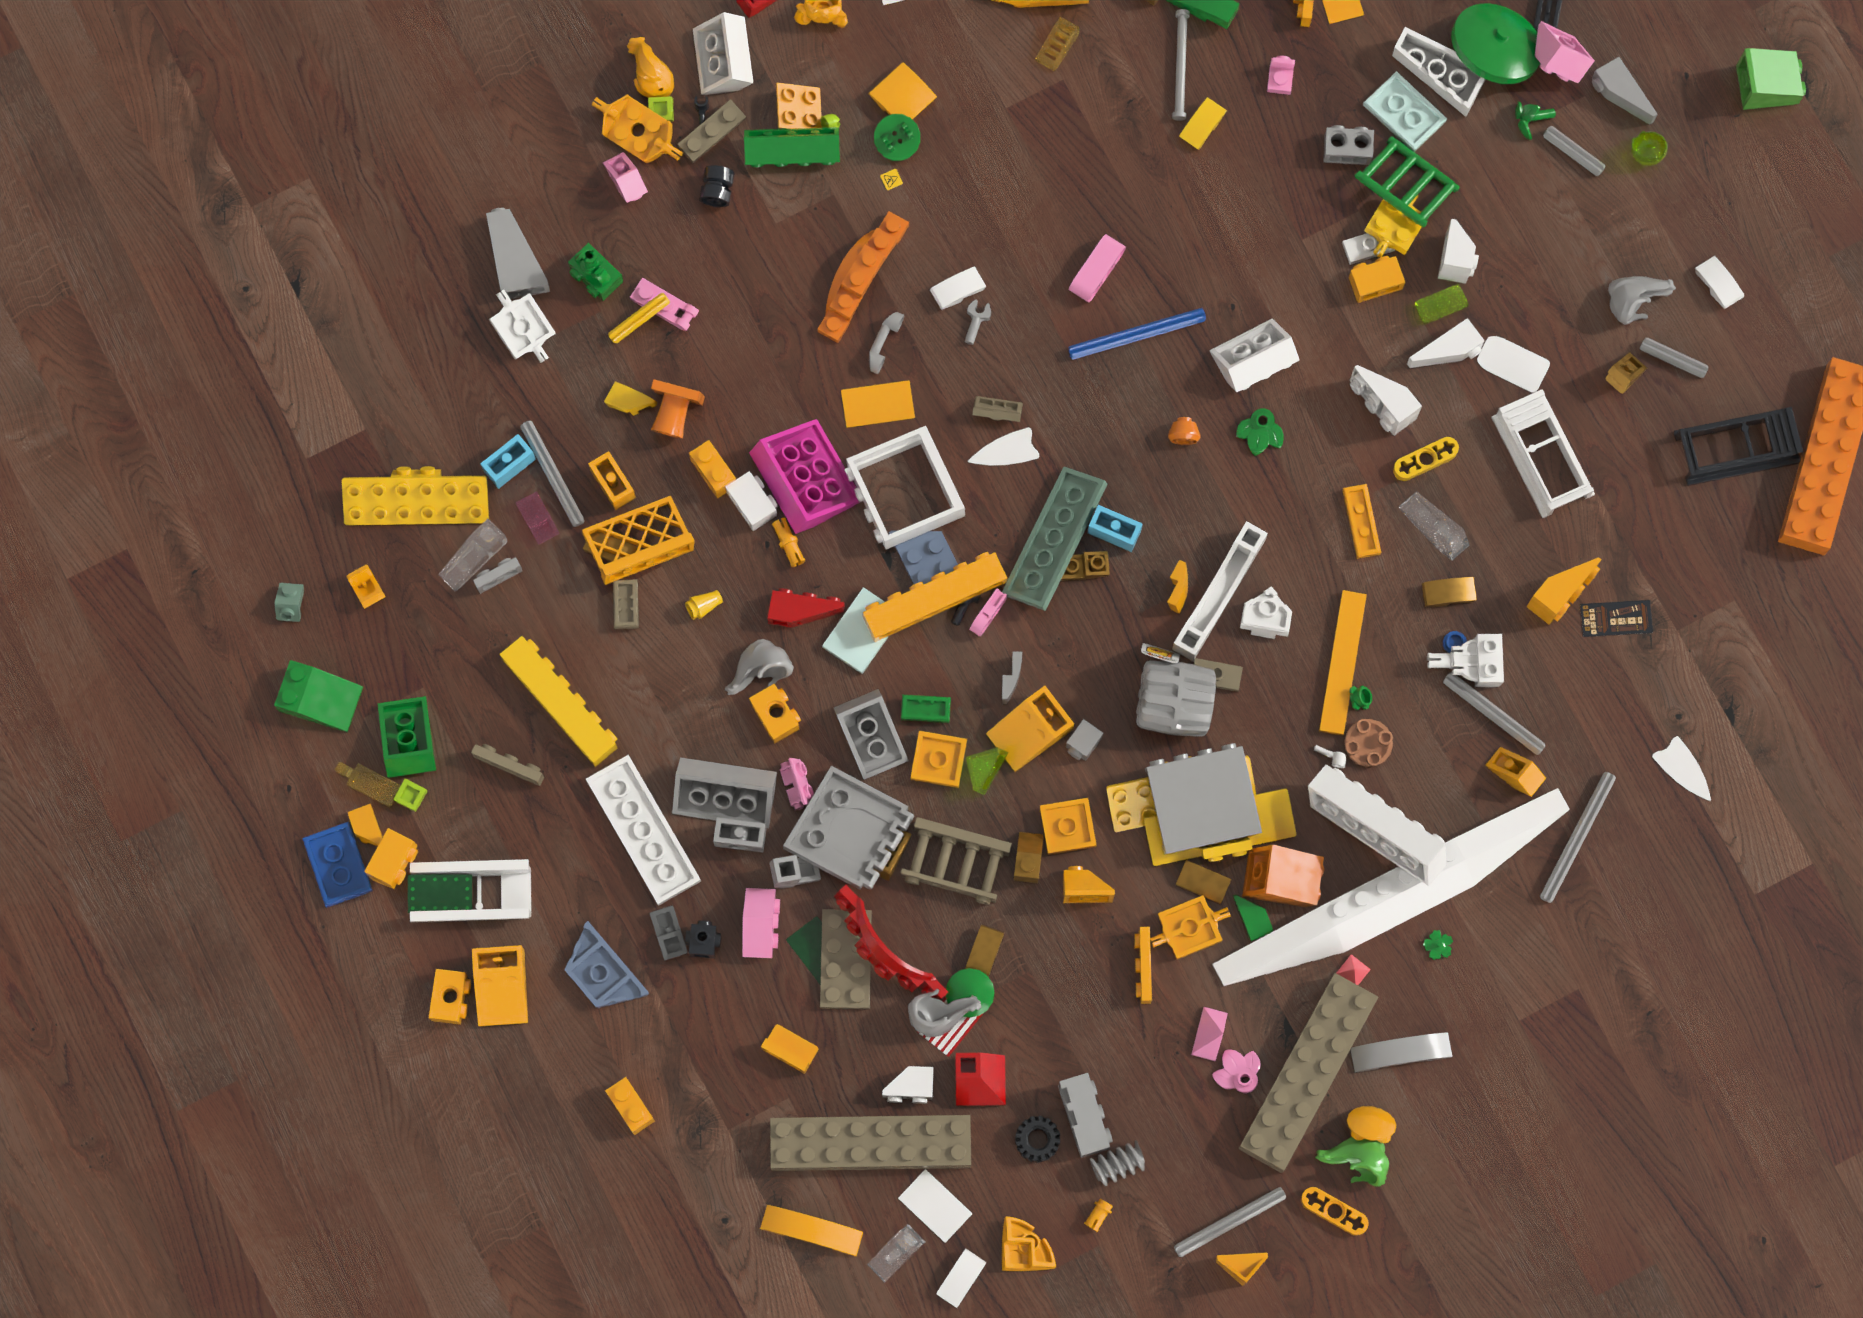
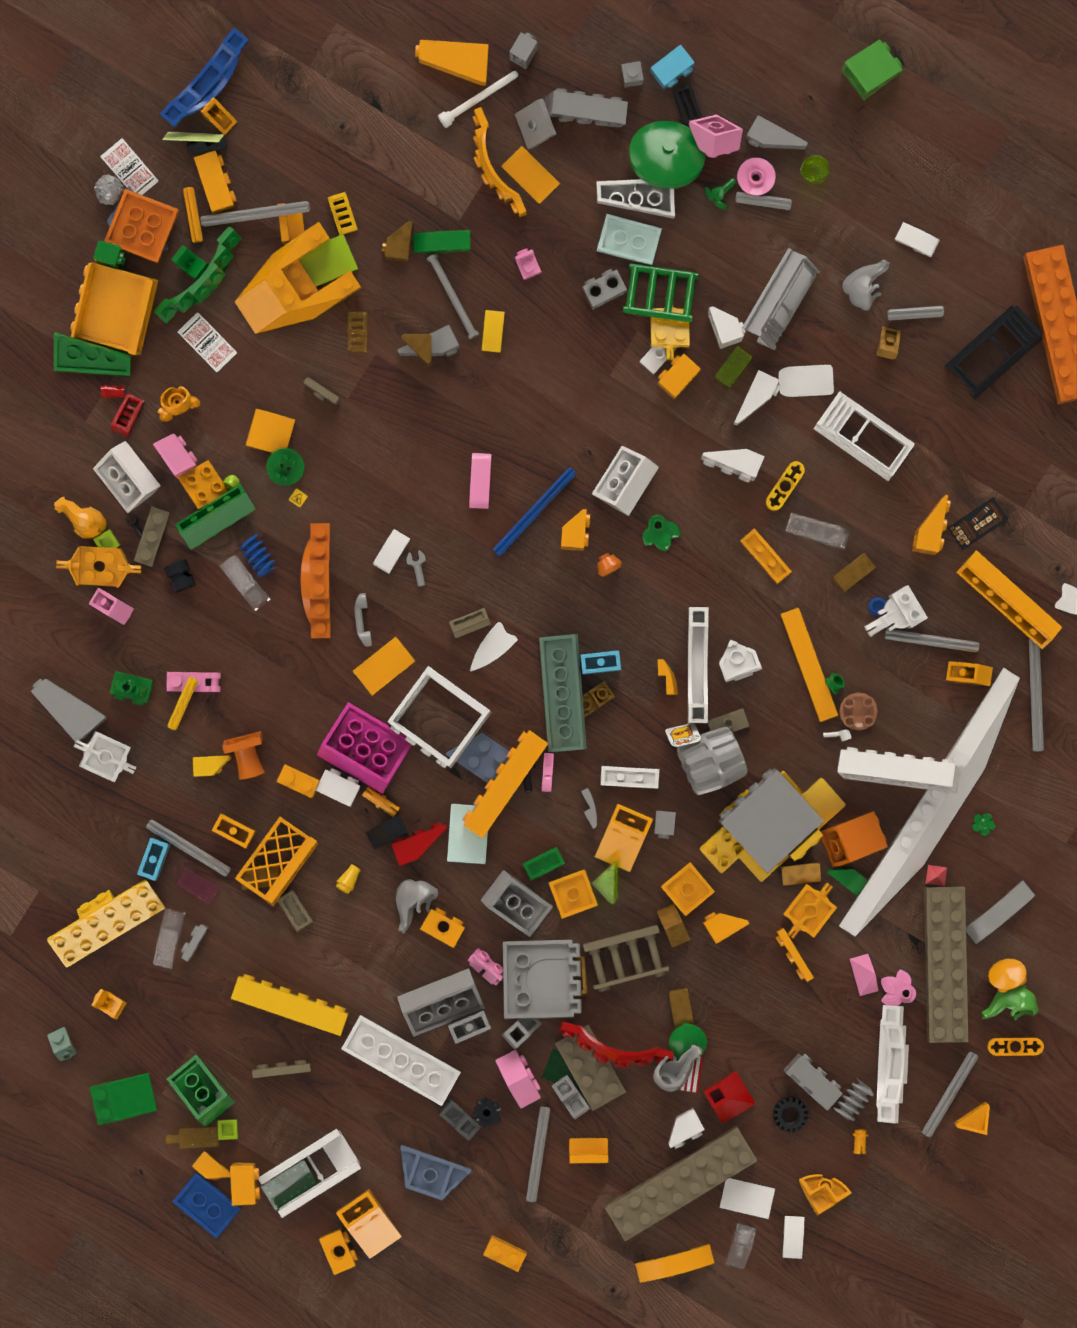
camera: 30 degrees left, 10 degrees up
(731, 1020) = (538, 1154): none -> light grey axle
(775, 576) = (387, 831): none -> black slope
(782, 234) = (245, 582): none -> clear slope
(788, 58) = (175, 455): none -> bright pink slope
(805, 978) = (571, 1097): none -> light grey slope
(810, 212) = (257, 556): none -> blue piece
(981, 82) = (321, 392): none -> dark tan plate
(1075, 670) = (629, 777): none -> white plate
(1117, 88) = (420, 344): none -> pearl gold slope
(1132, 101) = (442, 343): none -> light grey slope
(1167, 374) = (574, 532): none -> light orange slope
(1185, 1147) = (891, 1064): none -> white piece
(1502, 260) = (781, 298): none -> light grey piece
(1584, 111) = (758, 167): none -> bright pink dish
(1605, 715) = (1009, 599): none -> light orange brick

